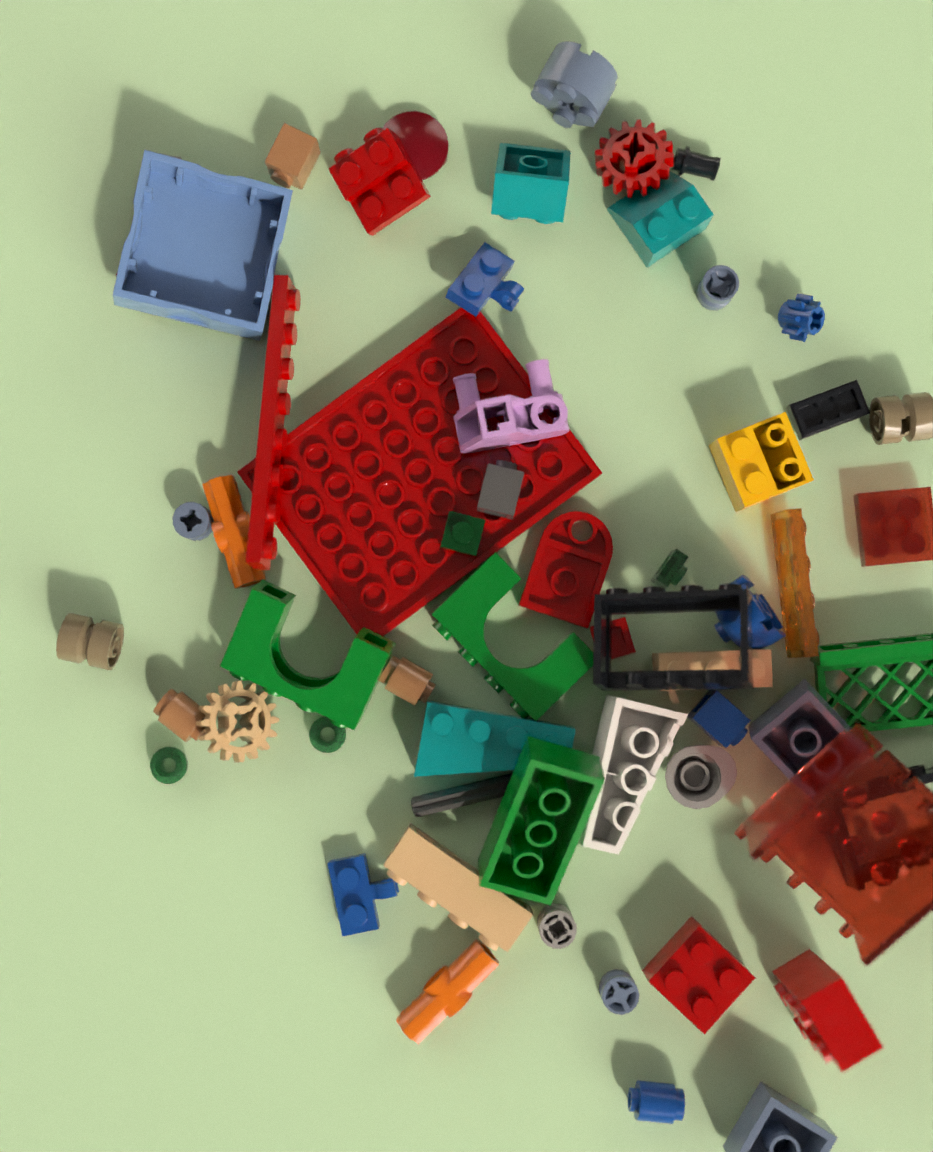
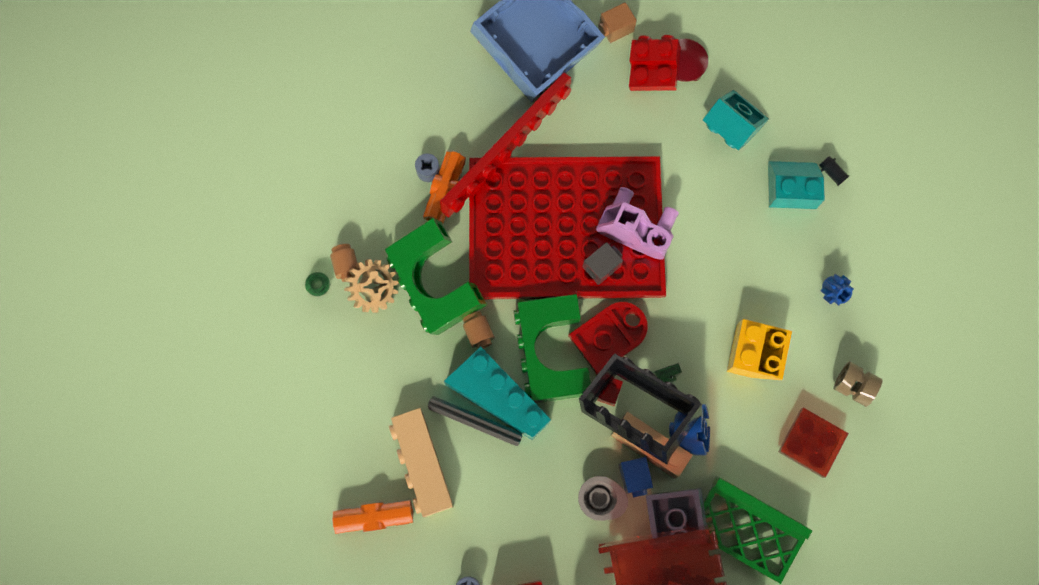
camera: 35 degrees right, 10 degrees down
(84, 640) = (324, 186): dark tan wheel -> none
(317, 740) = (407, 324): clear green plate -> none
(357, 894) = (364, 427): blue plate -> none
(462, 533) = (566, 272): dark green plate -> none
(484, 280) = (674, 151): blue plate -> none
(540, 820) = (494, 454): green brick -> none
(556, 918) = (463, 523): light grey wheel -> none
(575, 85) = (794, 85): sand blue brick -> none
(631, 749) = (564, 461): white wedge -> none
(651, 162) = (801, 144): red gear -> none
(721, 281) = (805, 240): sand blue wheel -> none
(794, 583) = (728, 439): clear orange plate -> none
(828, 410) = (818, 351): black plate -> none

